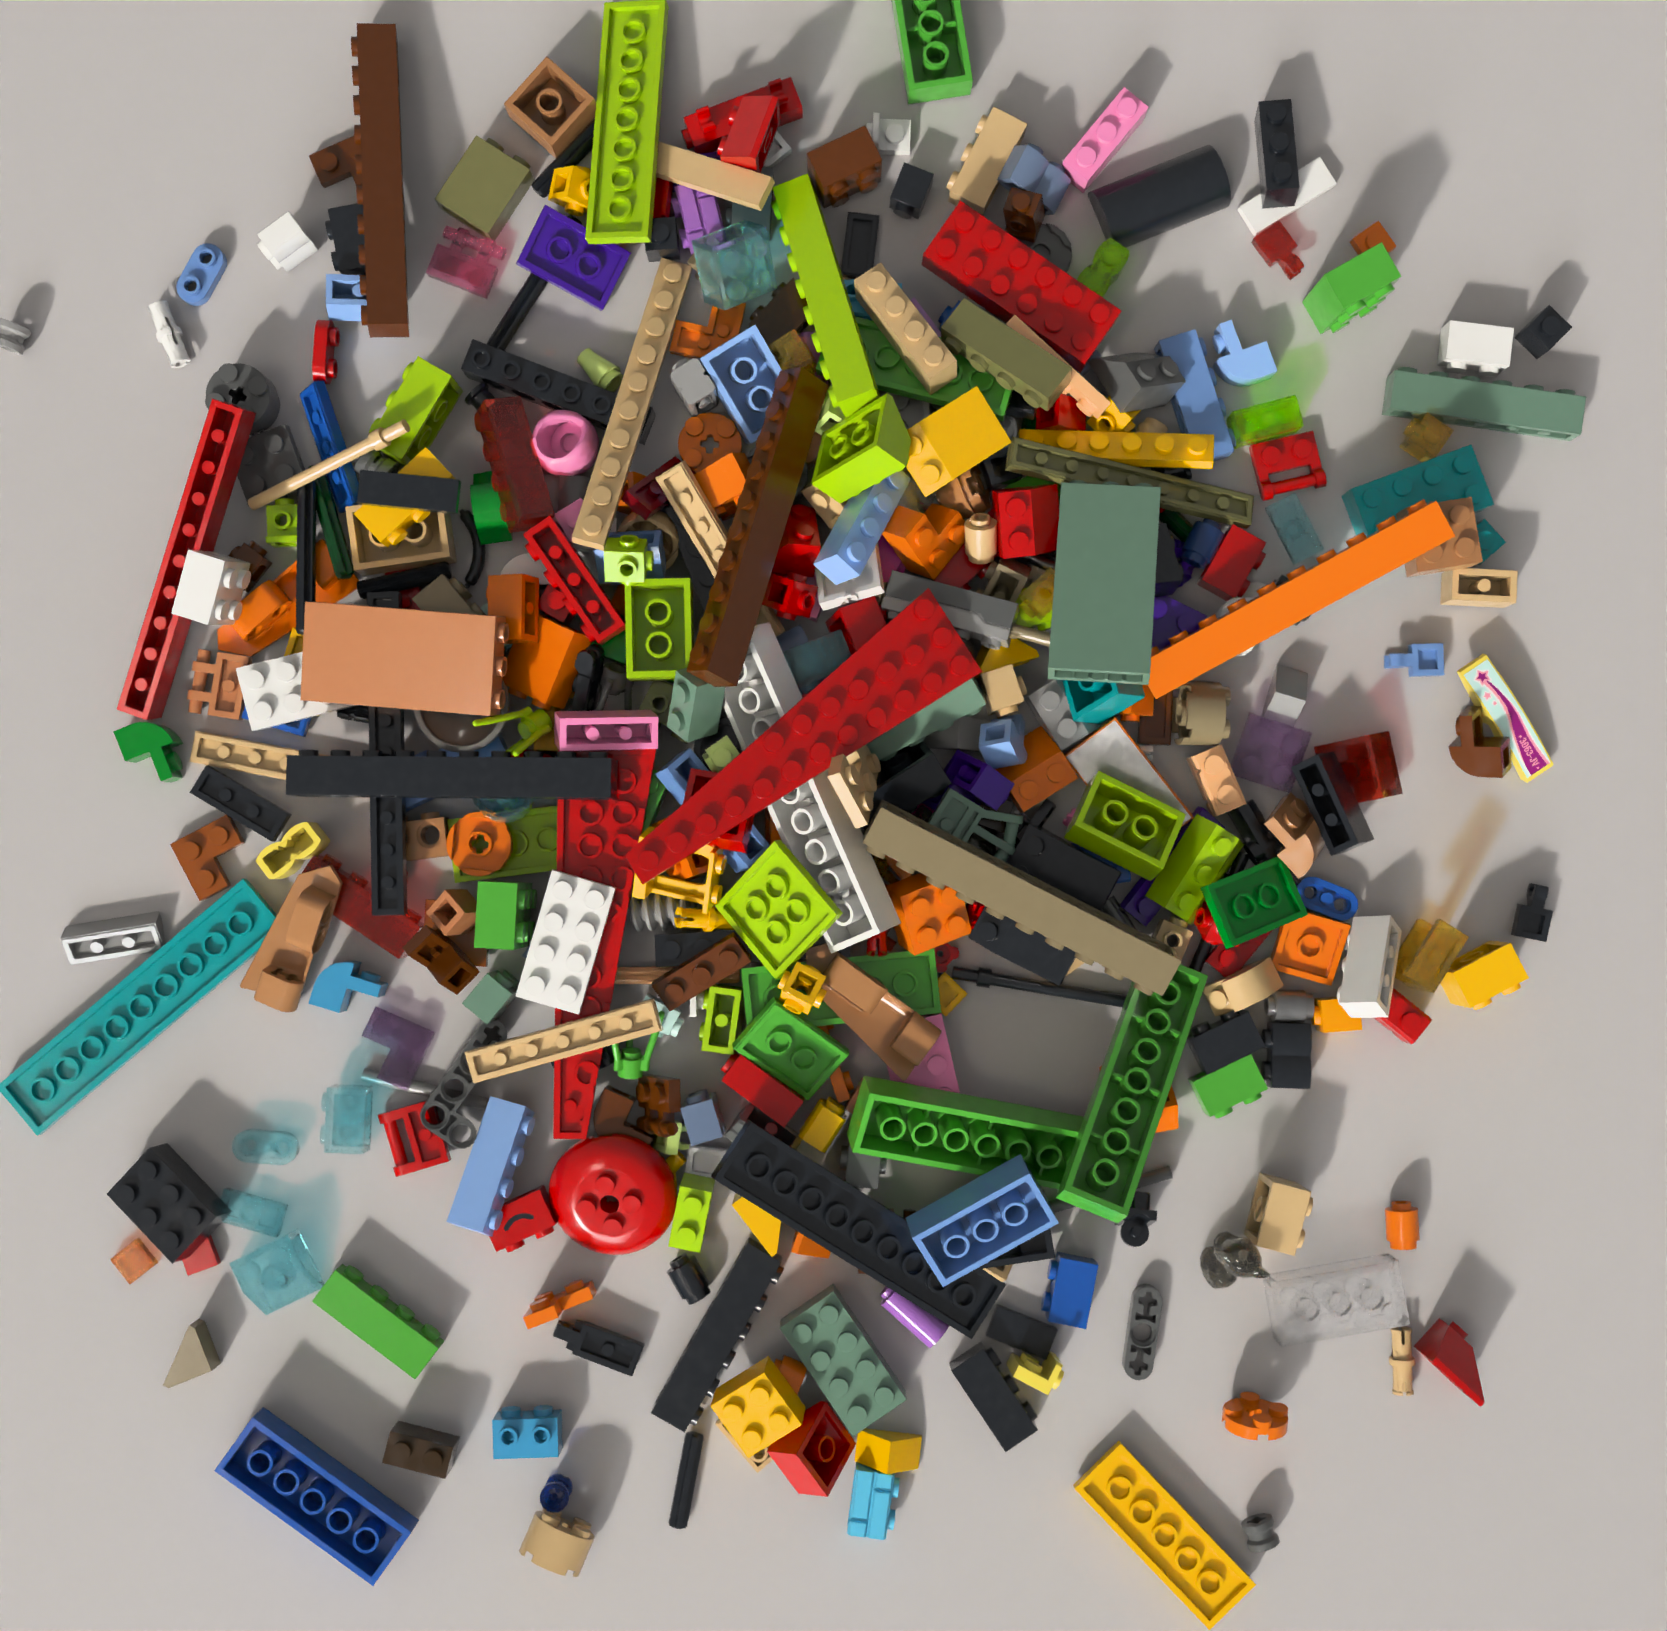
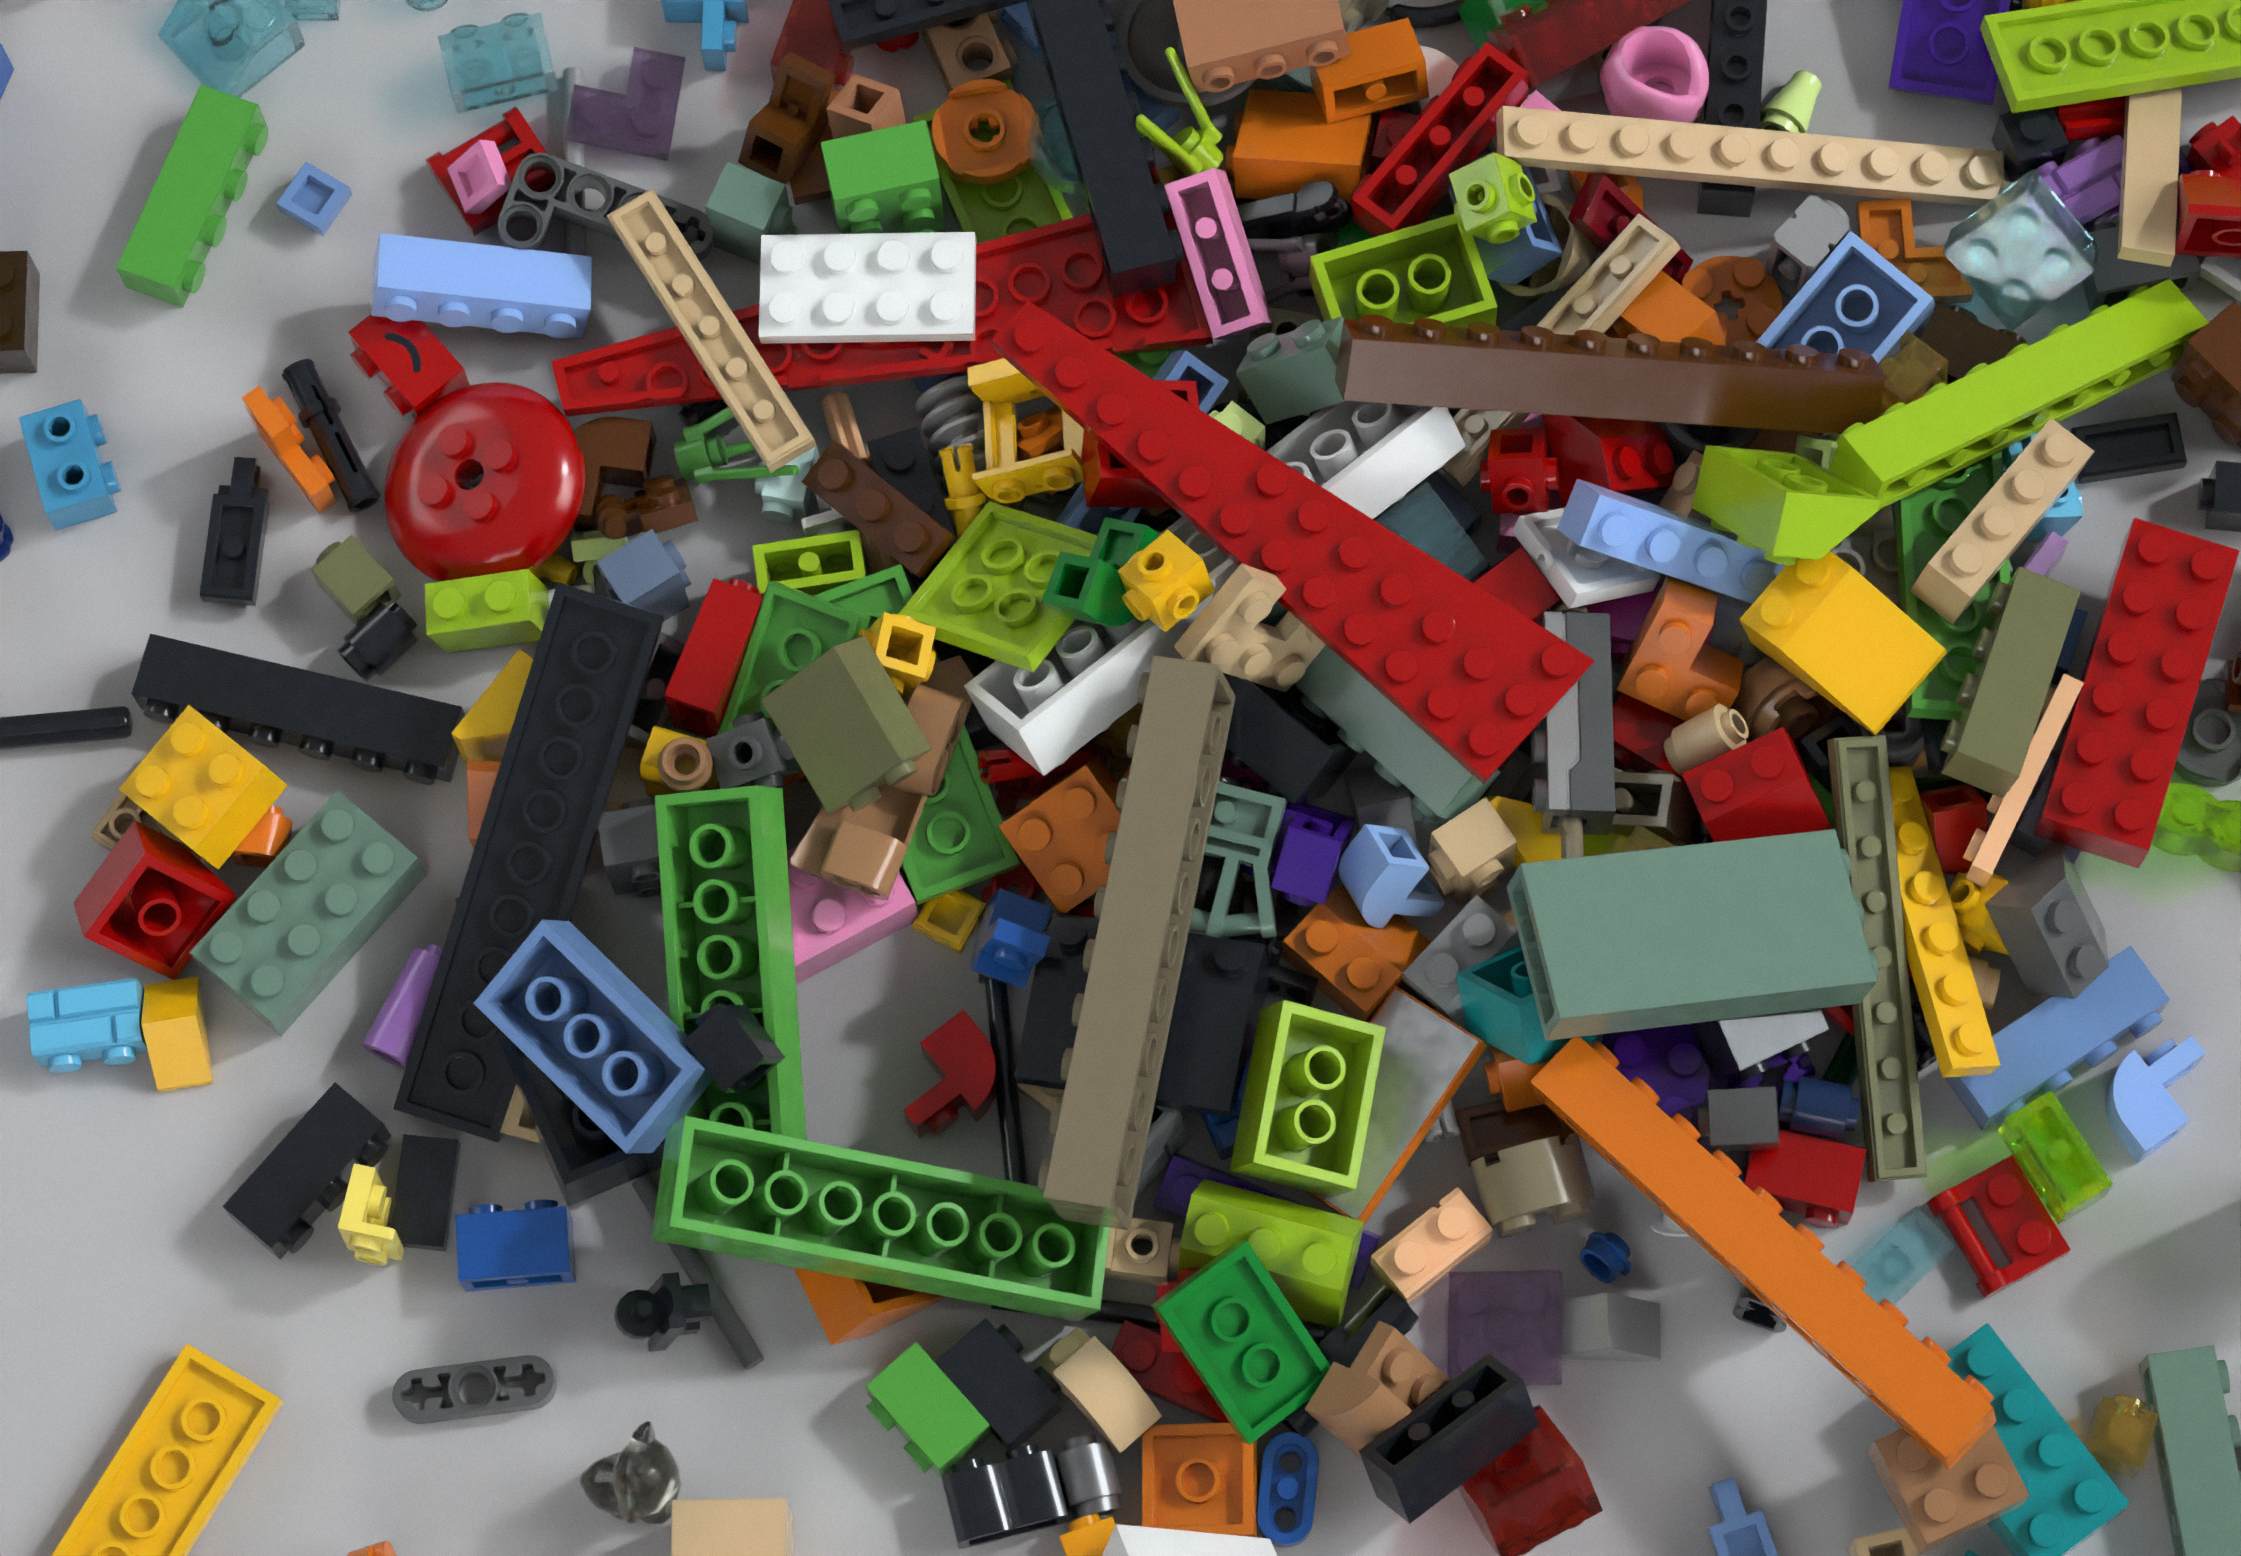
camera: 75 degrees right, 15 degrees down
(401, 1248) = (314, 198): none -> medium blue plate
(421, 1149) = (479, 176): none -> bright pink plate
(551, 1275) = (321, 416): none -> black pin
(648, 1283) = (354, 579): none -> olive brick
(805, 855) = (1091, 585): none -> green brick
(819, 823) = (1165, 581): none -> yellow brick
(828, 1137) = (682, 749): none -> medium nougat plate
(835, 1085) = (752, 754): none -> dark grey brick
(843, 1029) = (847, 726): none -> olive brick
(979, 967) = (1010, 938): none -> blue brick
(1014, 1145) = (733, 1047): none -> black brick
(1038, 1009) = (968, 1076): none -> red brick
(1205, 587) = (1740, 1119): none -> dark grey brick
(1244, 685) = (1606, 1256): none -> blue plate

